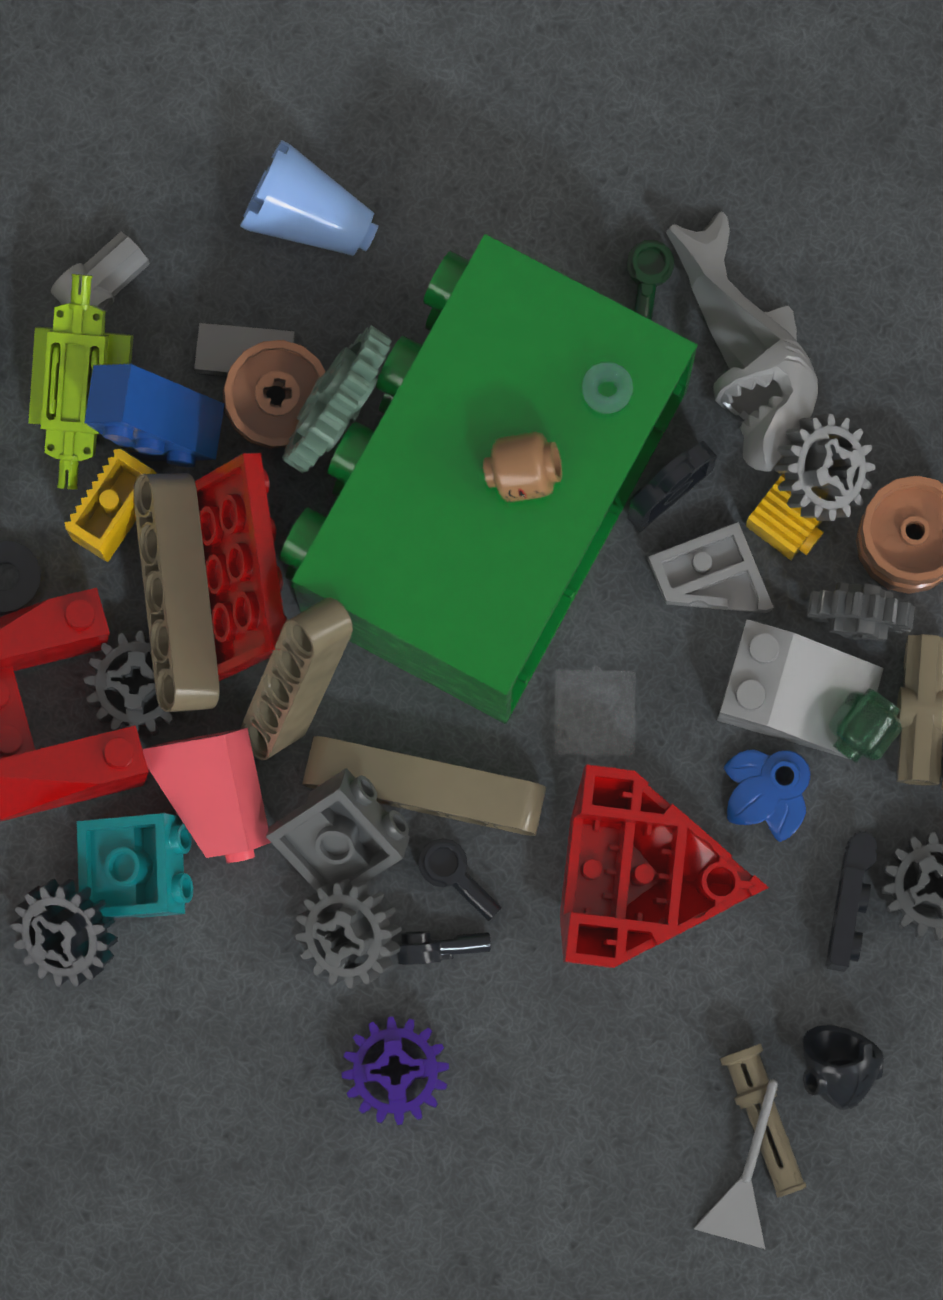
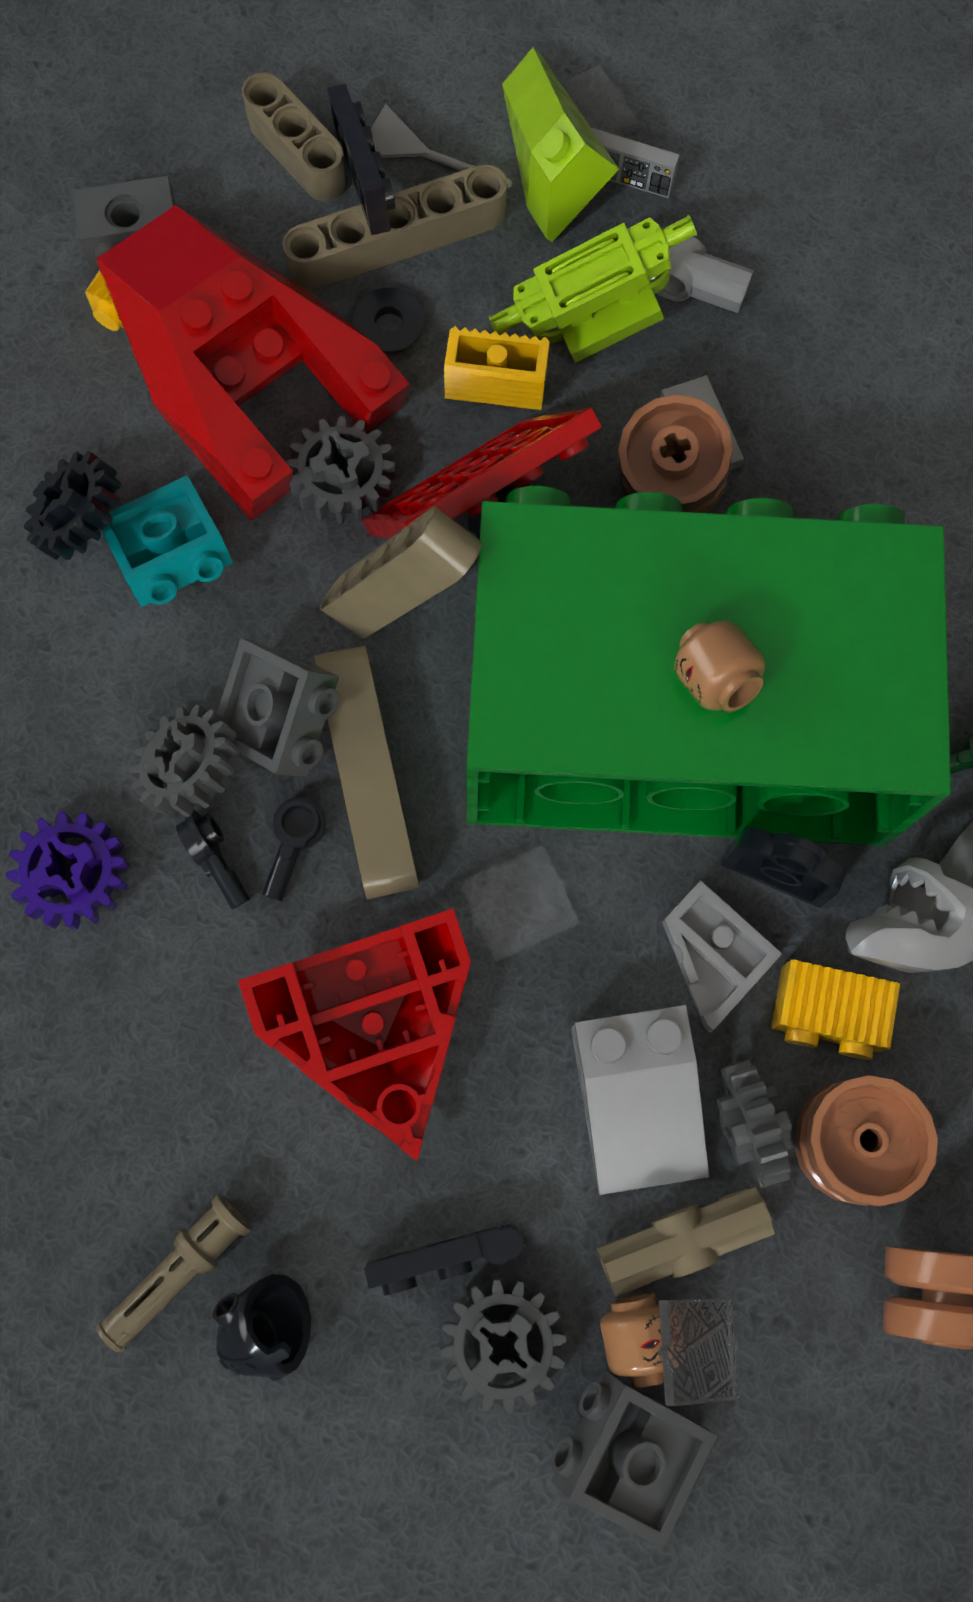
camera: 60 degrees right, 5 degrees down
(153, 415) = (593, 338): blue wedge -> none
(176, 592) = (437, 449): dark tan beam -> none
(214, 791) = (266, 576): coral slope -> none
(307, 206) = (867, 407): light blue cone -> none
(336, 399) = (695, 476): sand green gear -> none
(612, 373) = (860, 703): clear light blue plate -> none
(736, 1212) = (66, 1287): light grey piece -> none
(763, 796) = (514, 1111): blue plate -> none
(824, 467) = (887, 1009): dark grey gear -> none
(865, 725) = (636, 1185): clear green head -> none

